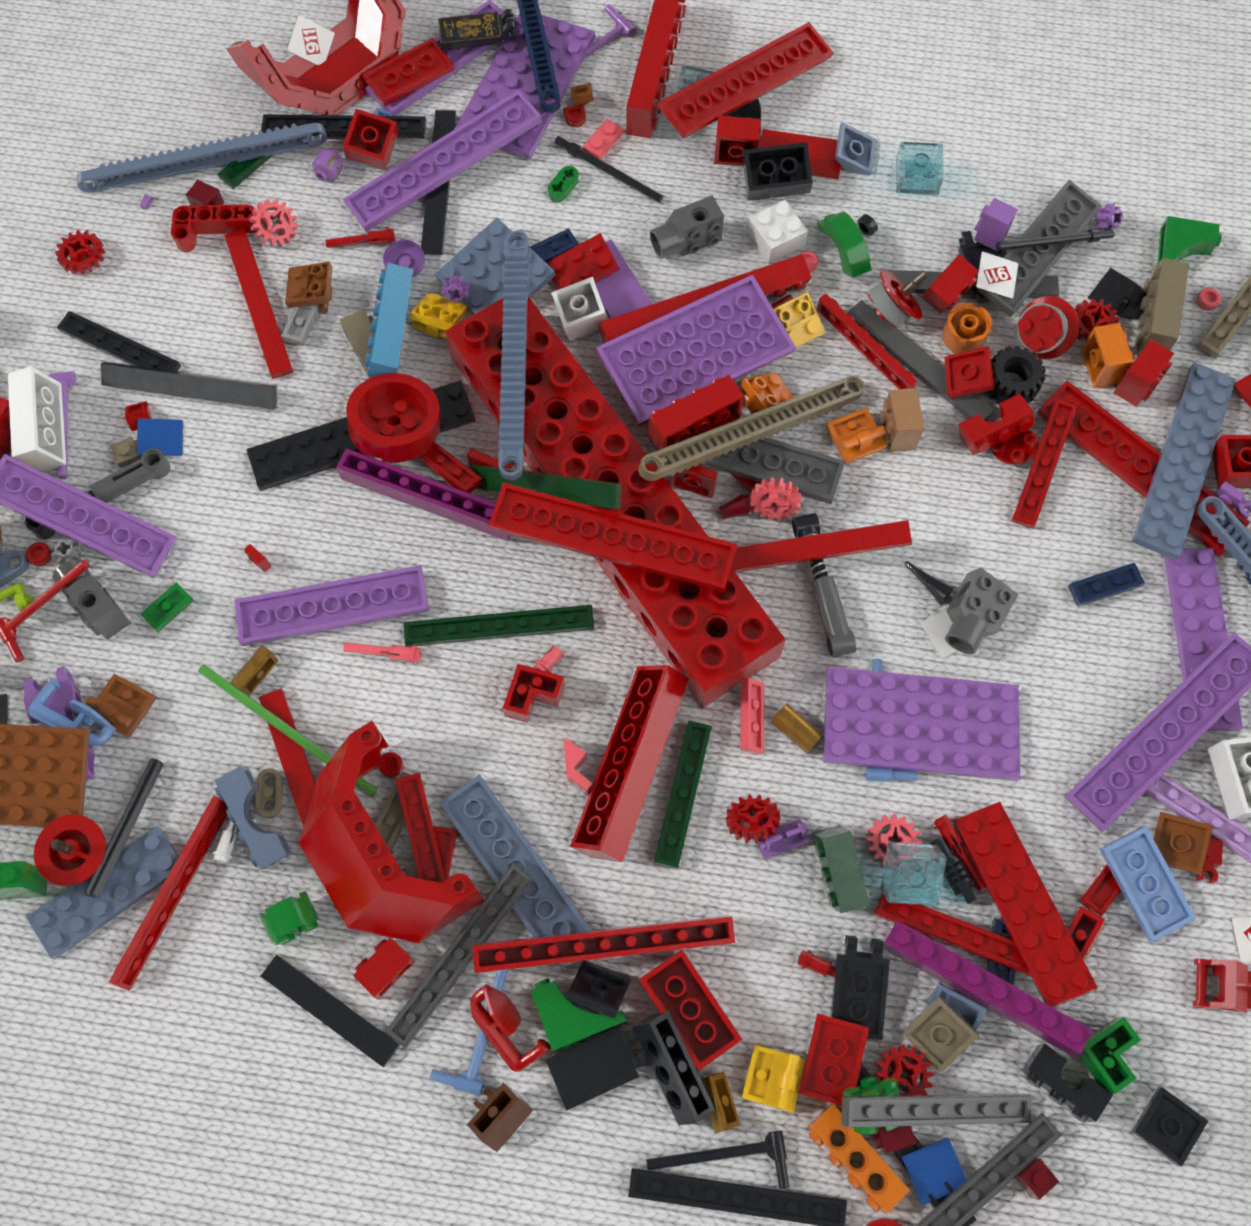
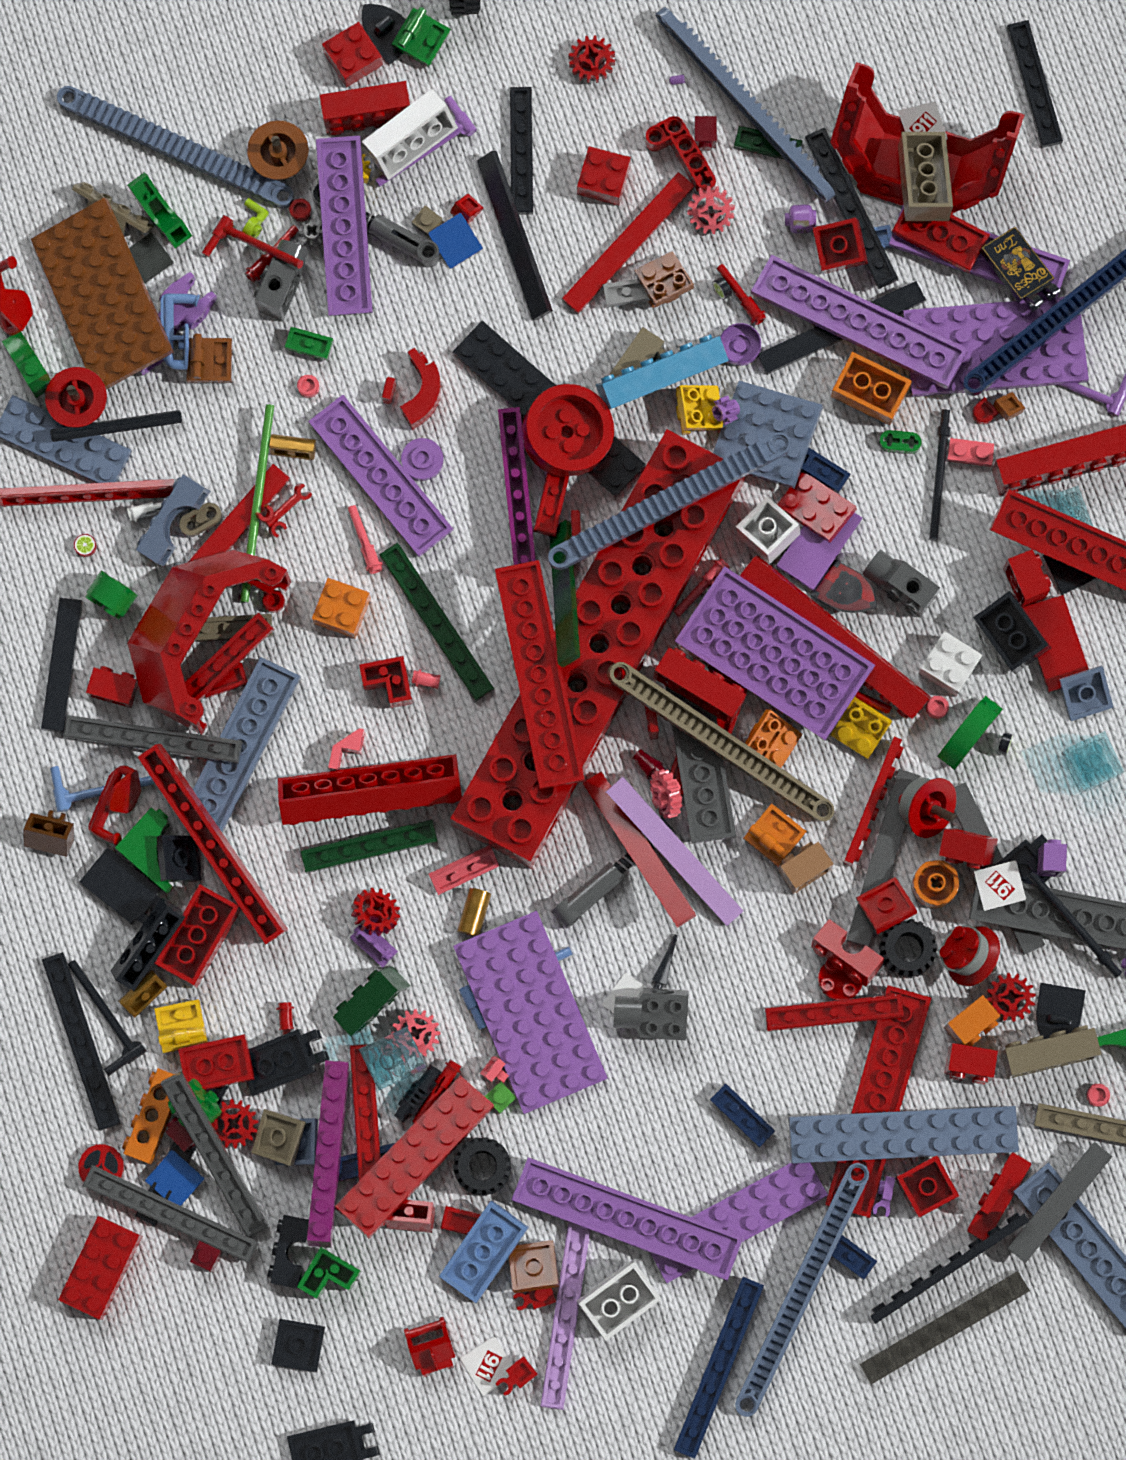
camera: 65 degrees right, 10 degrees up
(66, 619) = (256, 270): none -> red pin
(187, 290) = (603, 175): none -> red brick
(206, 629) = (308, 386): none -> coral tile
(223, 922) = (85, 545): none -> tile
(269, 516) = (426, 401): none -> red arch
(309, 722) = (271, 518): none -> red bar
(339, 561) = (422, 459): none -> medium lavender piece
(346, 249) = (722, 288): none -> black tile
(355, 52) = (925, 176): none -> dark tan brick
(436, 702) = (341, 608): none -> orange brick
(506, 178) = (871, 388): none -> orange brick
(590, 367) = (708, 580): none -> coral pin
(668, 276) = (845, 589): none -> shield
(830, 519) = (674, 851): none -> lavender tile
(963, 784) = (493, 1070): none -> coral tile
(991, 792) = (501, 1097): none -> bright green plate
(1075, 832) = (462, 1161): none -> black tyre

